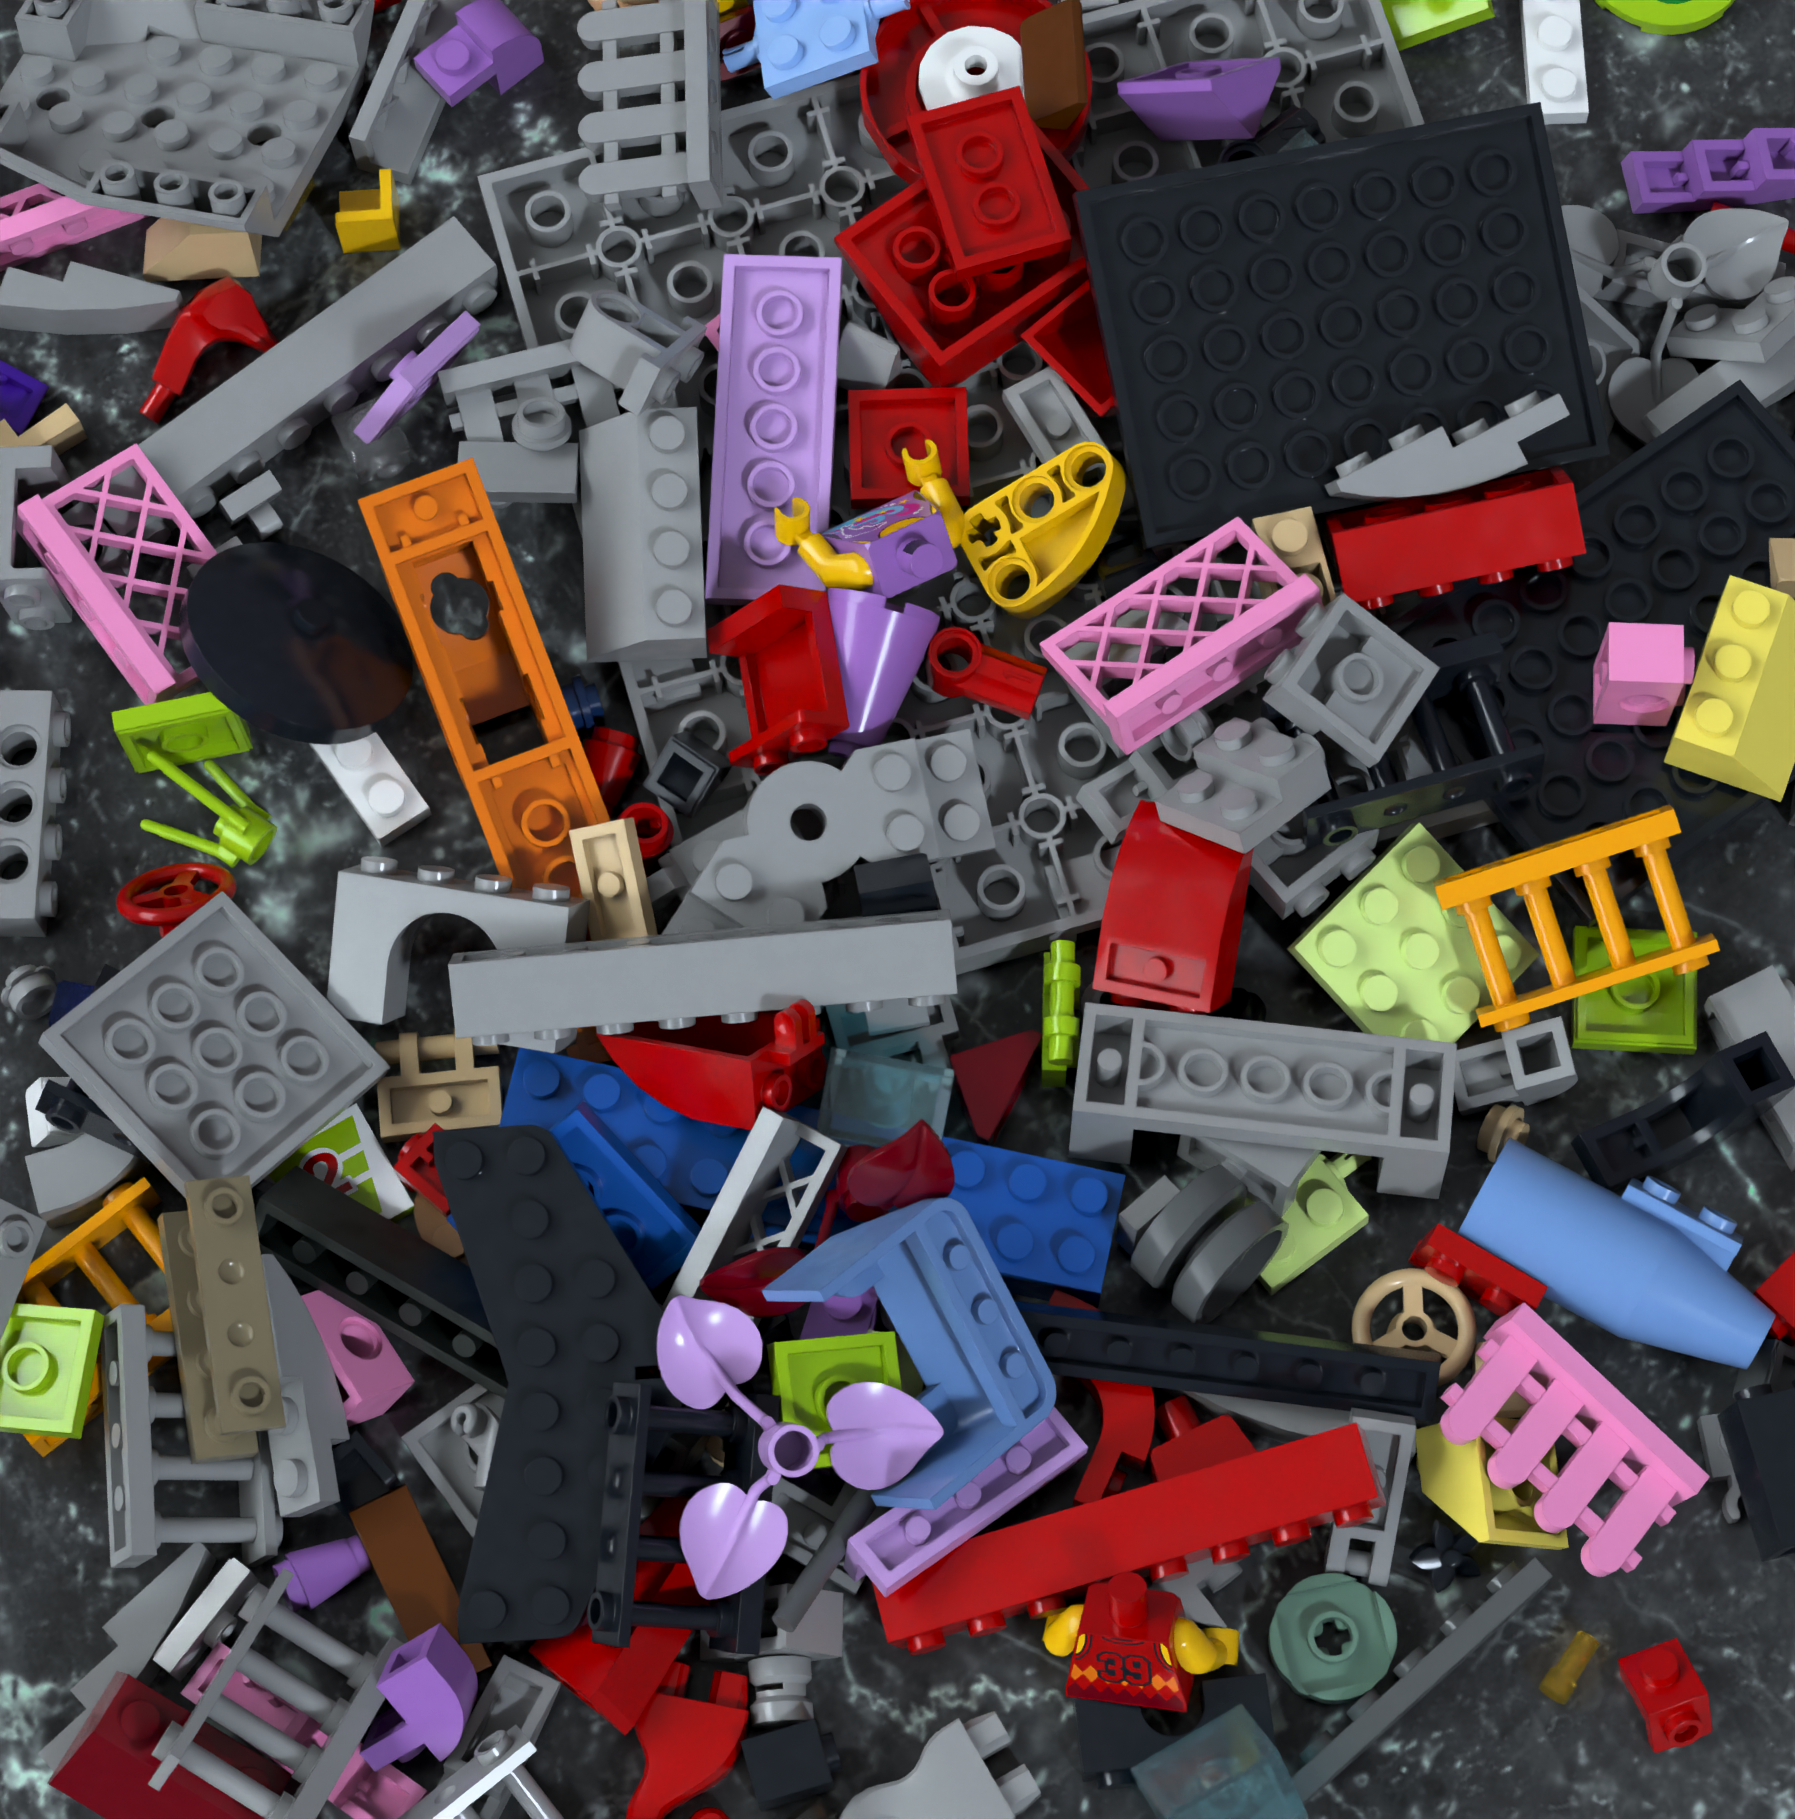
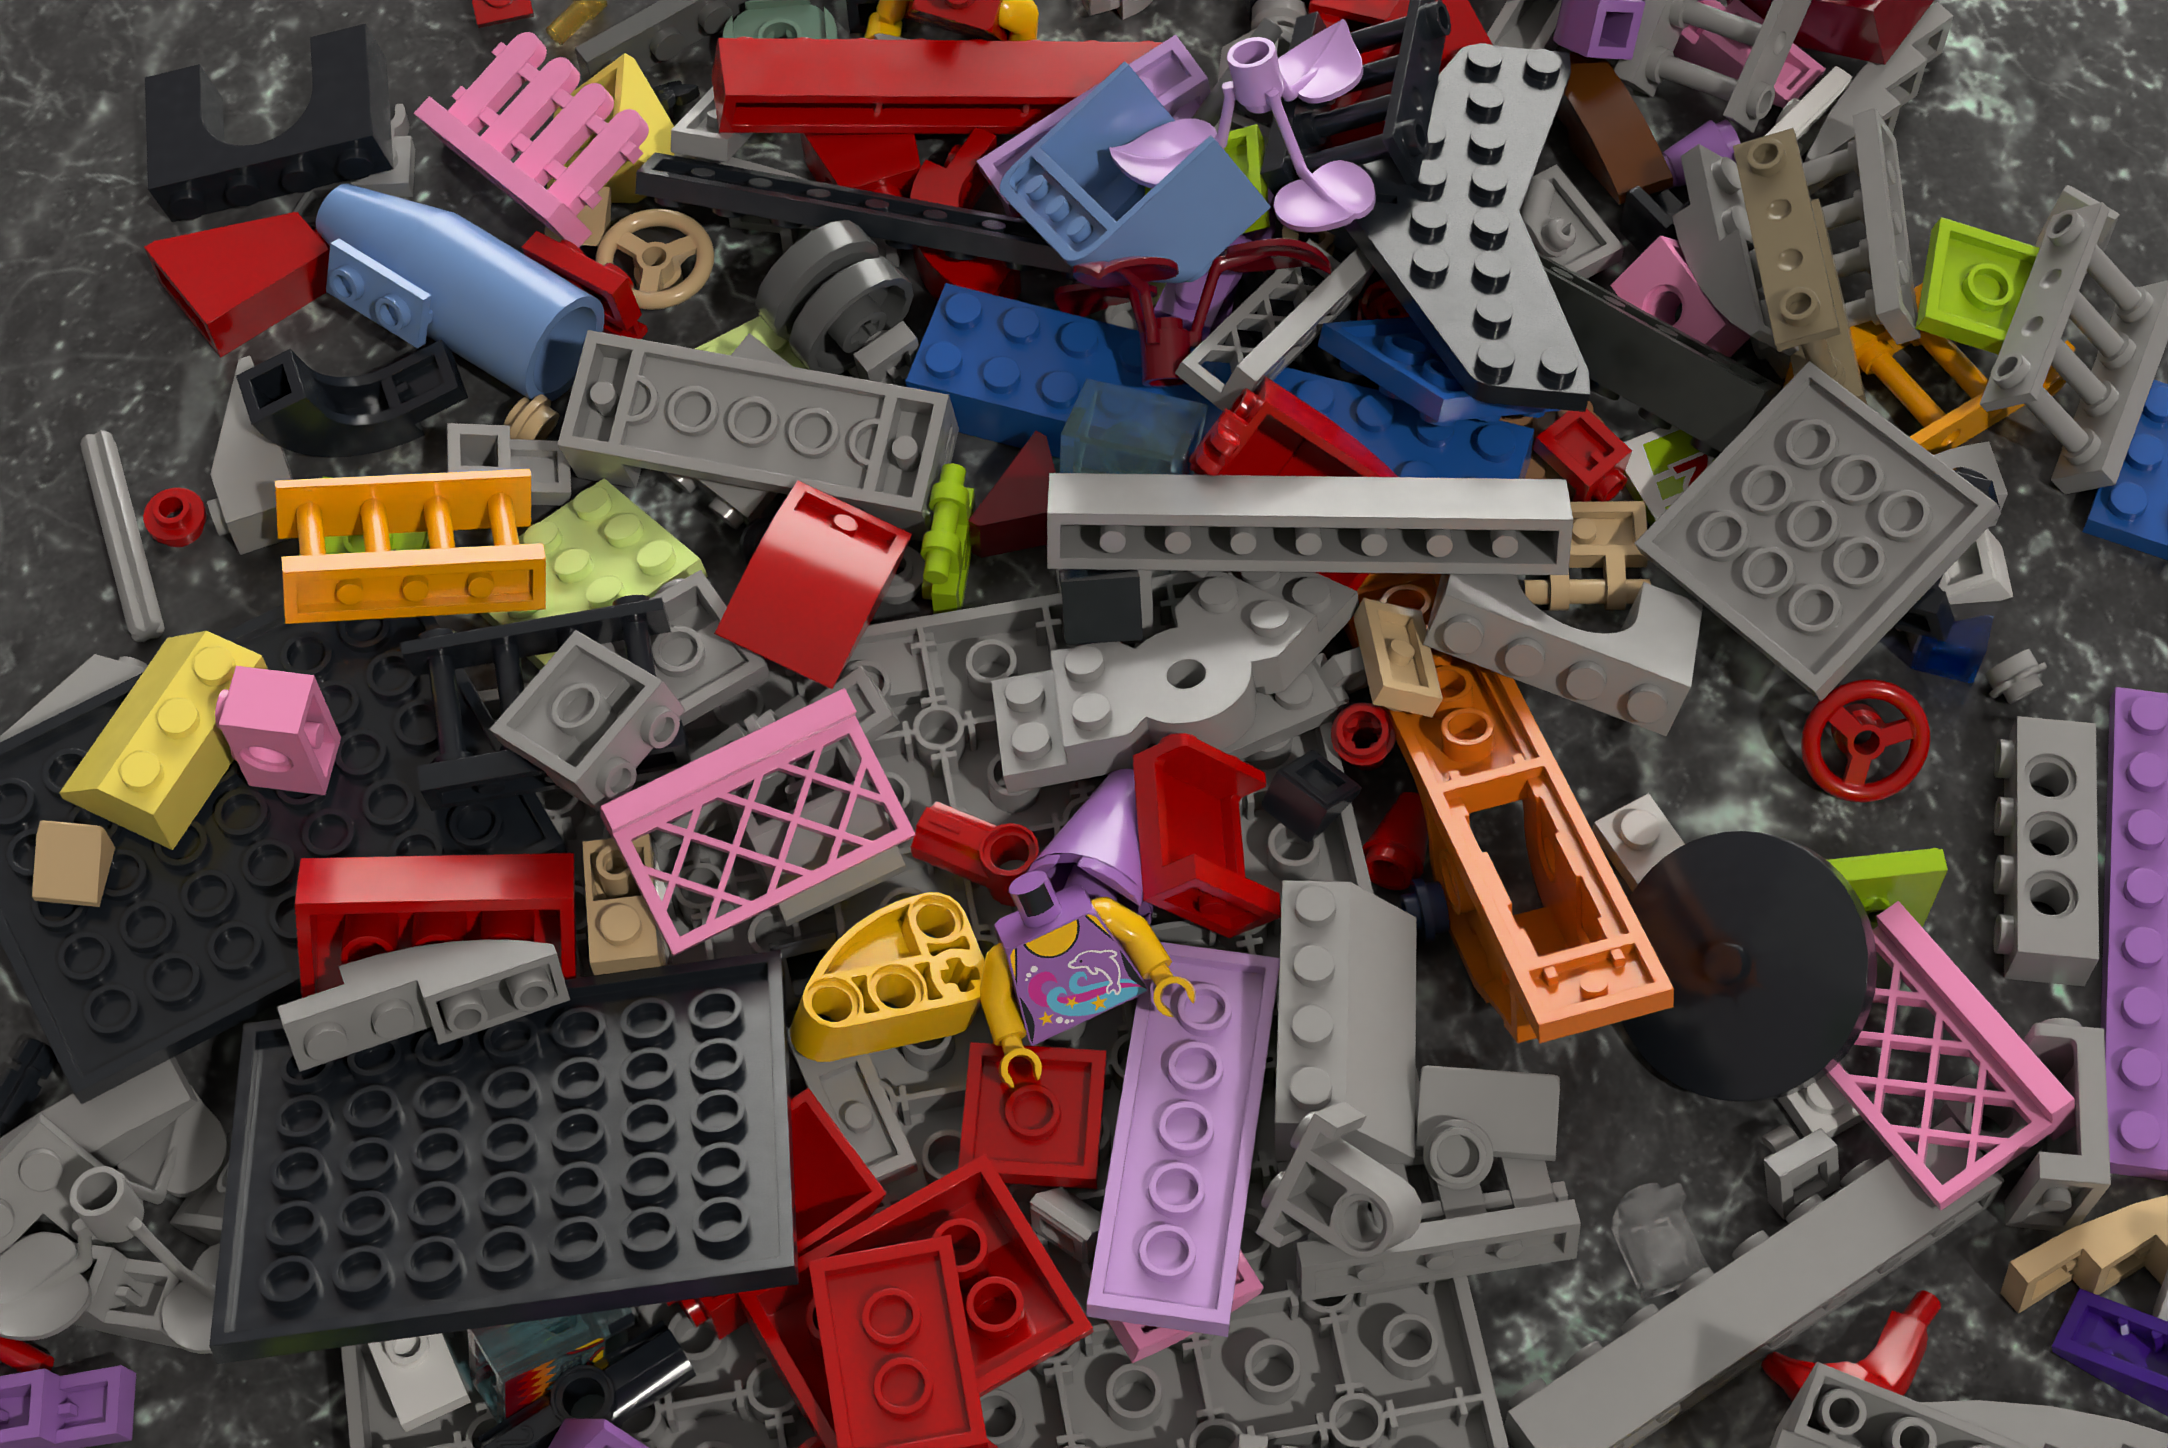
camera: 175 degrees left, 10 degrees down
(242, 831) = (1799, 813): lime plant -> none
(416, 377) = (1604, 1257): lavender plate -> none
(1246, 784) = (722, 649): light grey plate -> none

